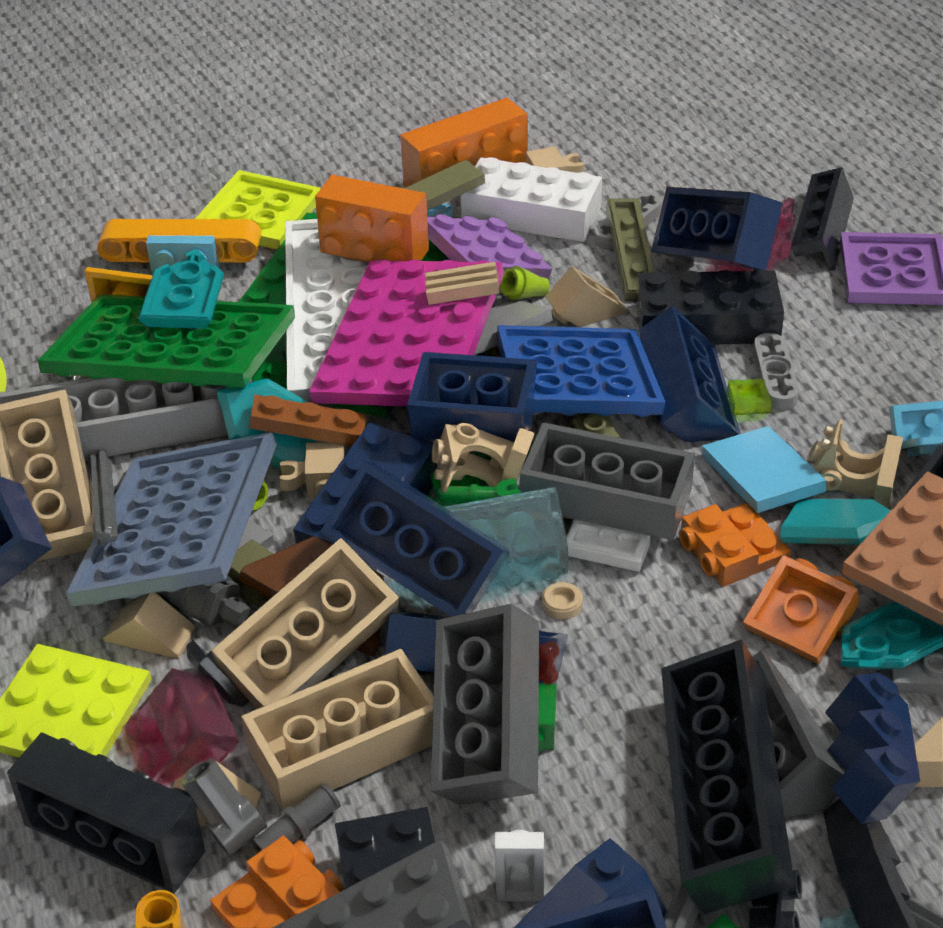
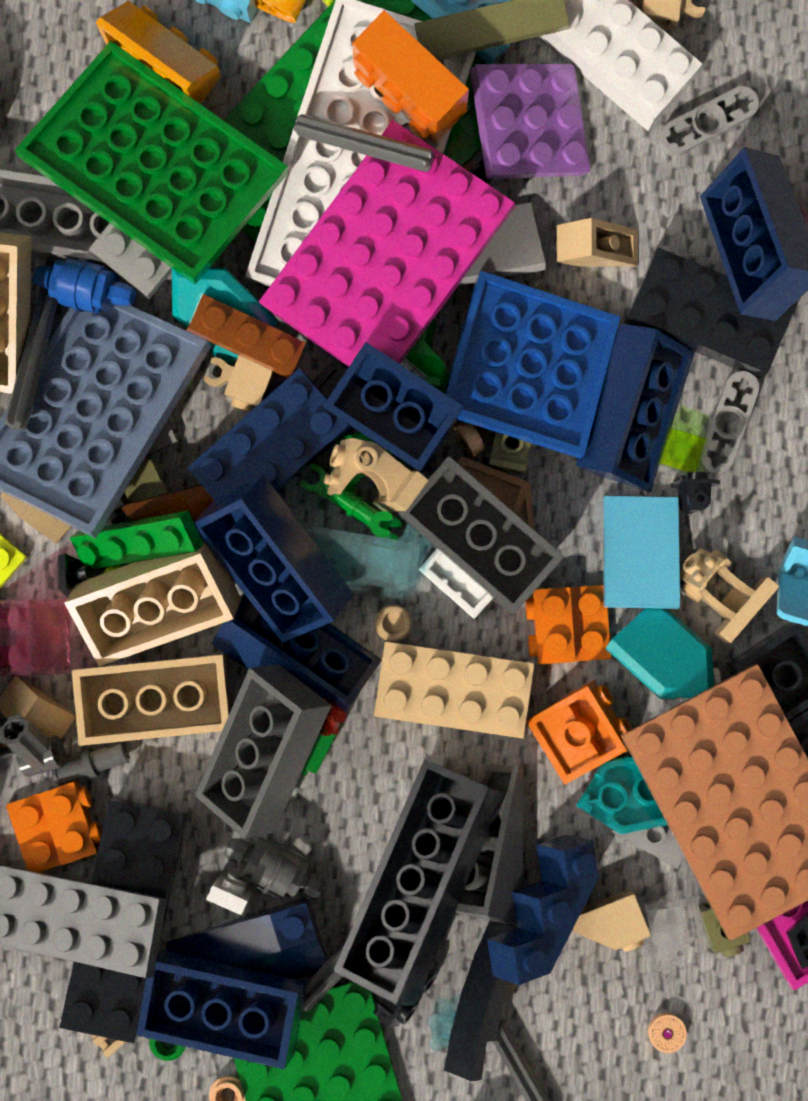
camera: 25 degrees right, 45 degrees up
(135, 438) = (83, 285): none -> blue piece
(175, 401) = (130, 260): none -> light grey plate
(182, 294) = (181, 111): teal tile -> none
(279, 568) = (138, 540): none -> green plate
(353, 269) = (364, 142): none -> dark grey axle
(462, 283) = (458, 216): tan tile -> none
(521, 283) = (542, 193): lime cone -> none
(567, 832) = (274, 869): none -> dark grey piece
(629, 242) = (684, 178): olive tile -> none
(653, 617) = (454, 689): none -> tan brick
(777, 400) = (694, 491): none -> black hinge

